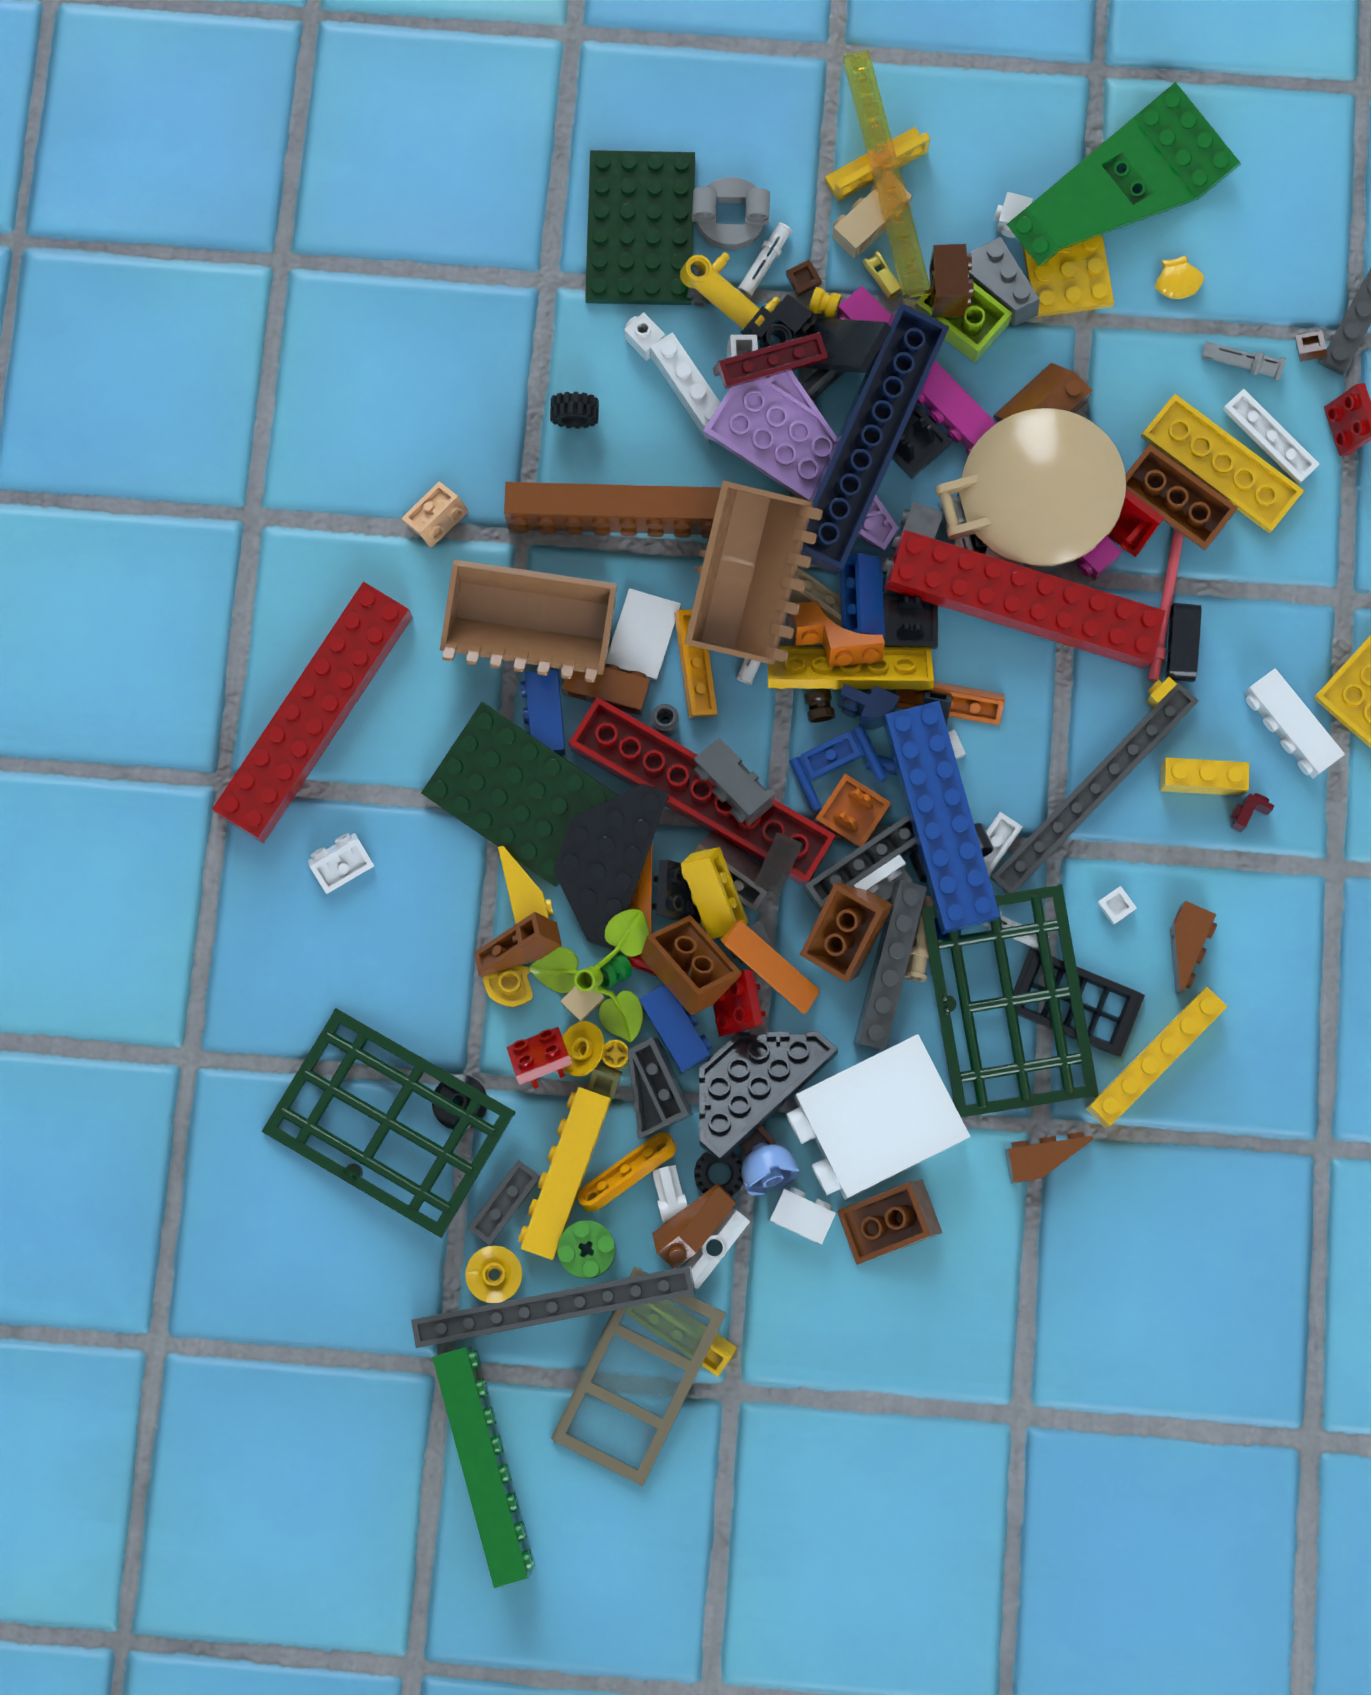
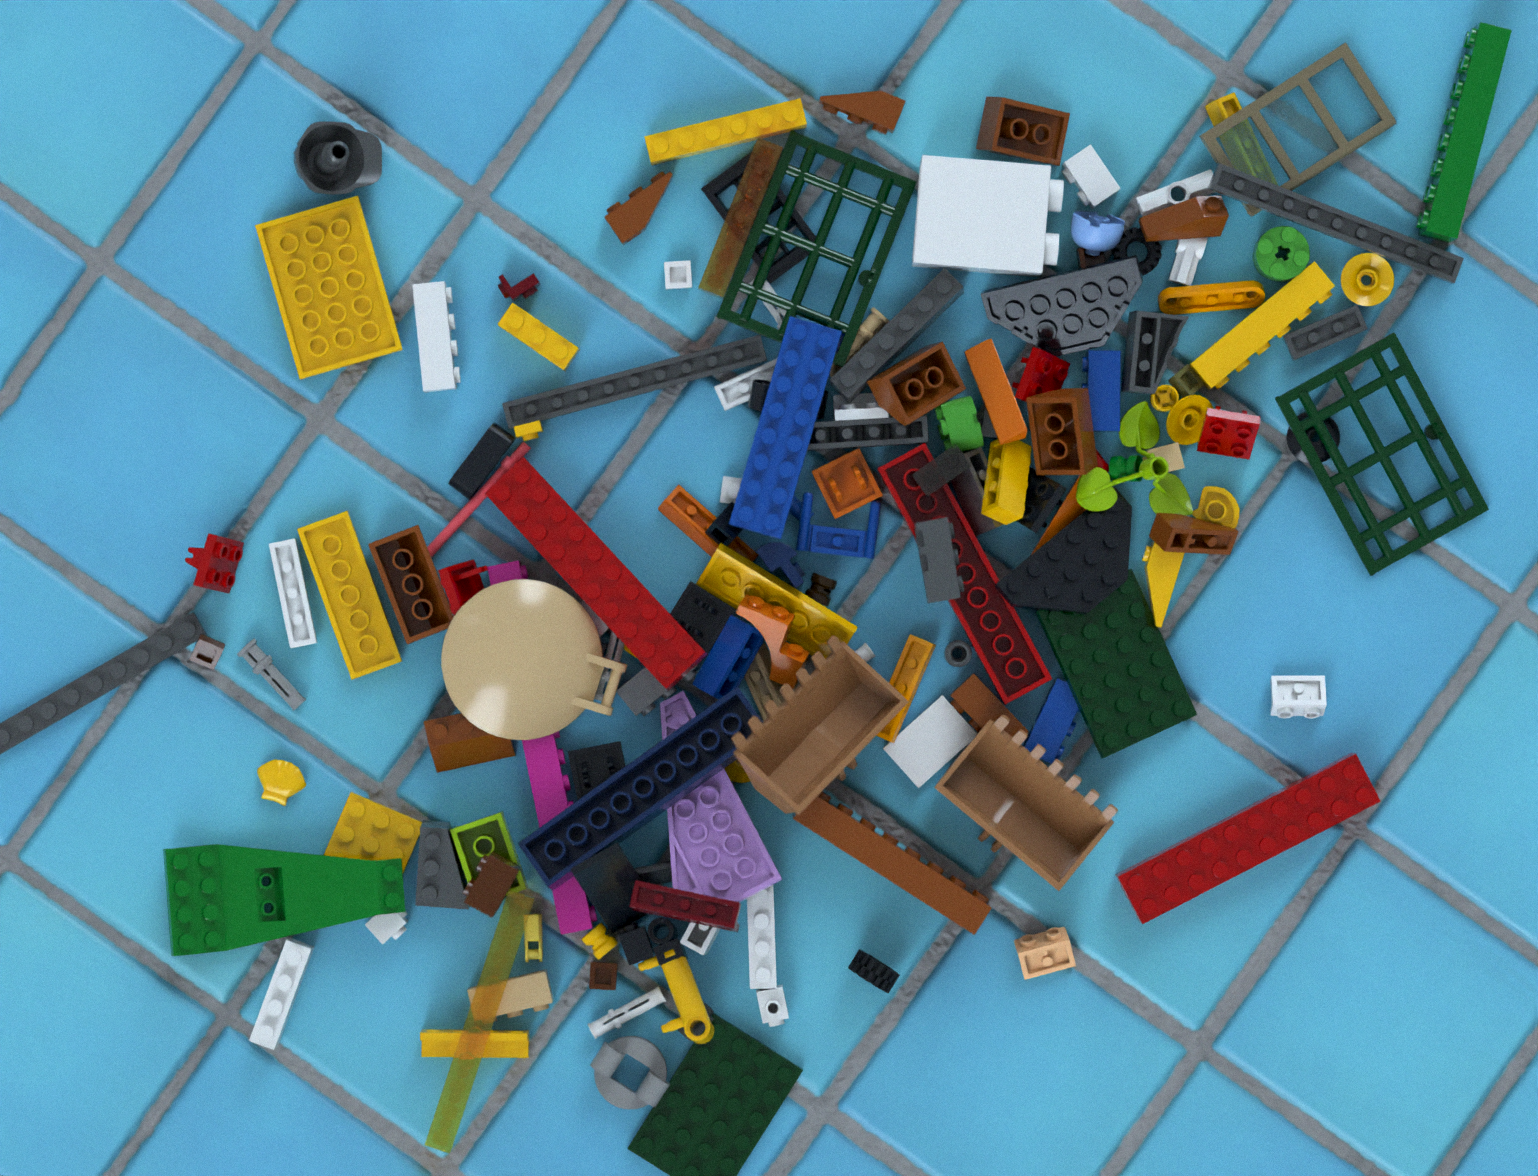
camera: 155 degrees left, 10 degrees up
(785, 918) = (959, 424): none -> bright green brick
(1064, 107) = (281, 993): none -> white brick
(1096, 985) = (740, 218): none -> clear orange brick

